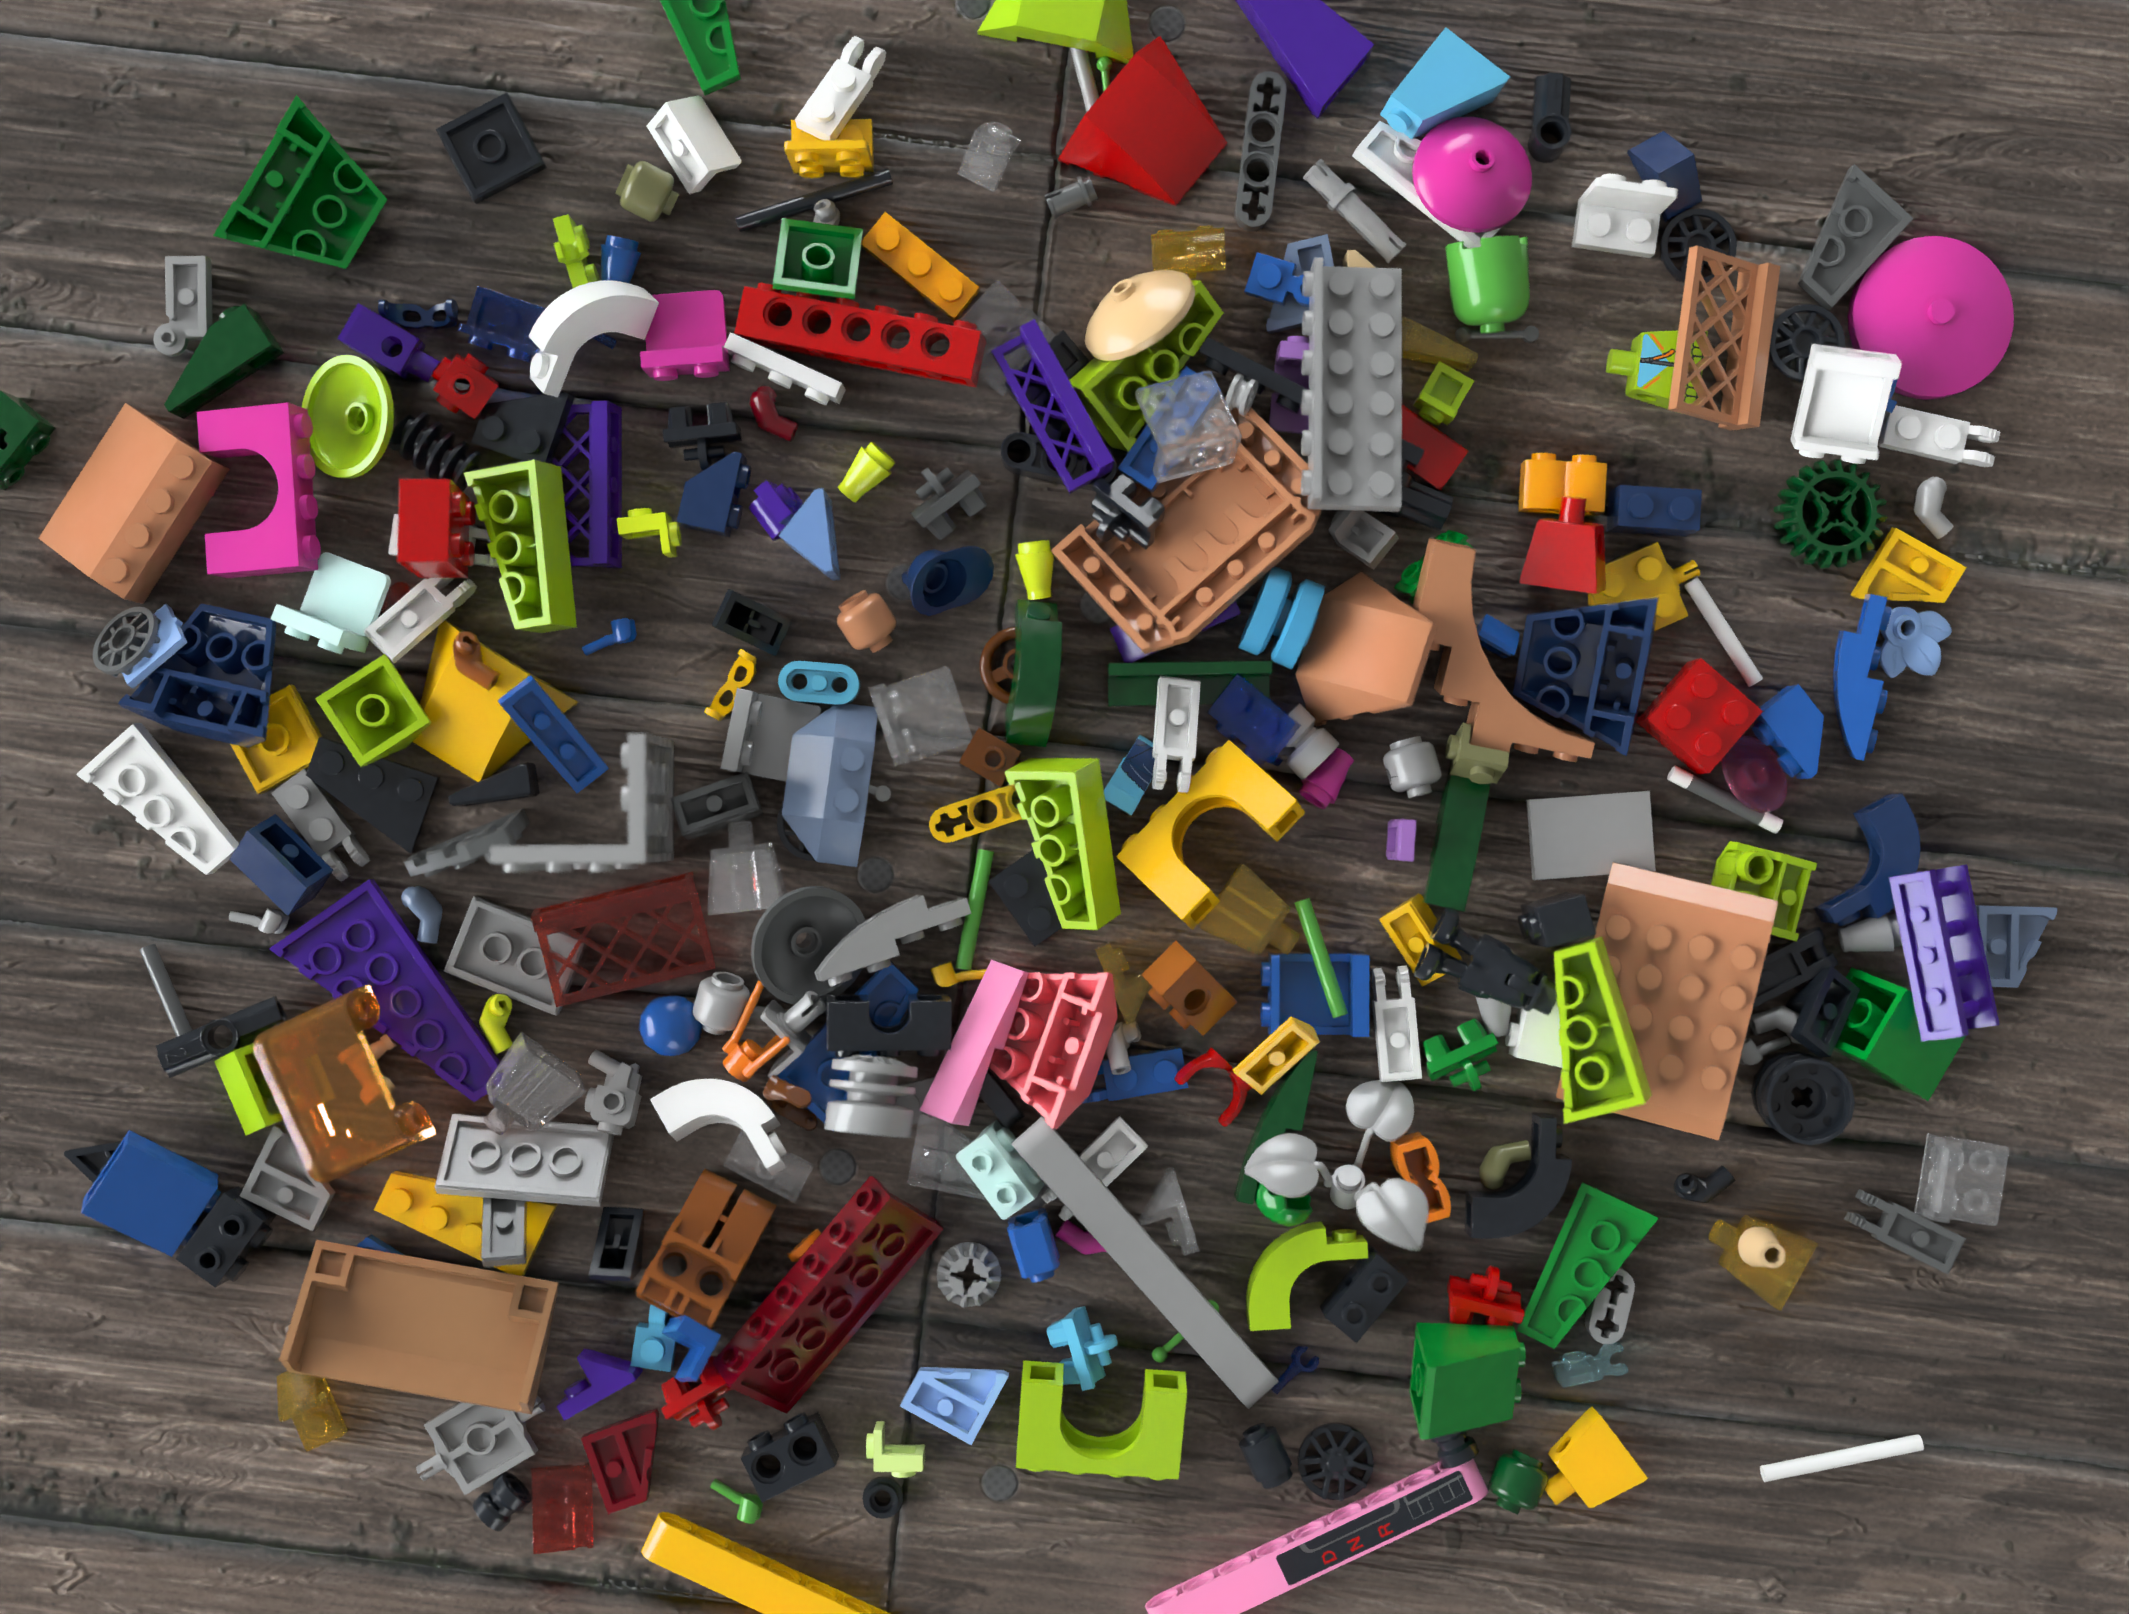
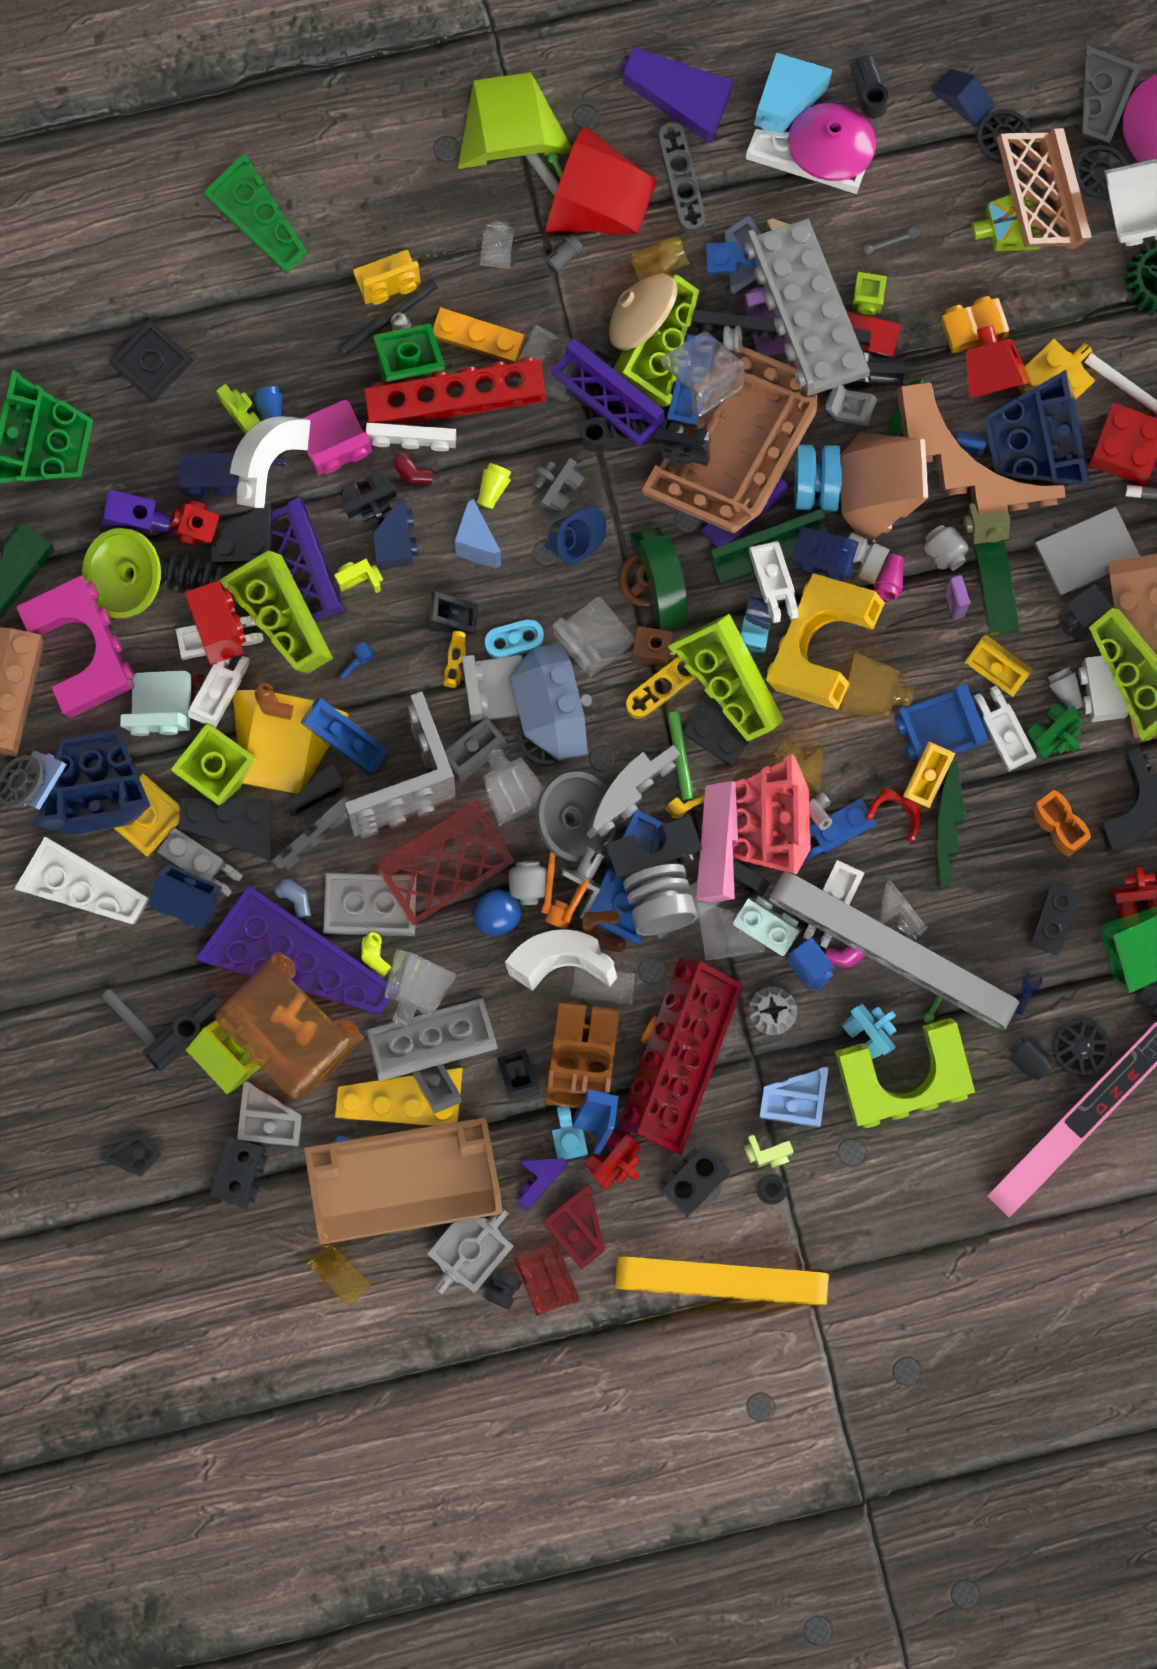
camera: 30 degrees left, 10 degrees down
(151, 1194) = (176, 1157): blue brick -> none
(272, 921) = (189, 943): light grey hand -> none
(397, 314) = (164, 478): dark blue cap -> none
(617, 1101) = (478, 976): light grey piece -> none
(647, 191) = (271, 351): olive head -> none
(692, 142) = (290, 308): white panel -> none
(749, 1504) = (679, 1230): bright green hand -> none
(774, 507) = (441, 530): dark purple plate -> none
(840, 92) = (380, 239): white hinge -> none
(866, 621) = (531, 585): nougat head -> none
(1036, 568) = (634, 506): neon yellow cone -> none
(1188, 988) = (850, 751): dark orange brick -> none
(1282, 1209) = (968, 874): green hair -> none
(1284, 1261) = (986, 935): lime arch -> none
(1321, 957) = (934, 699): bright green bar -> none
(1354, 210) = (766, 196): light grey pin -> none
(1391, 1211) = (1048, 835): light grey plant -> none
(1431, 347) = (847, 265): clear yellow slope -> none
(1489, 281) = (871, 207): bright green cylinder -> none
(1492, 970) = (1054, 661): black piece -> none
(1498, 1161) = (1112, 796): olive arm -> none
(1621, 215) = (943, 133): white bracket -> none
(1654, 510) = (1043, 319): dark blue brick -> none

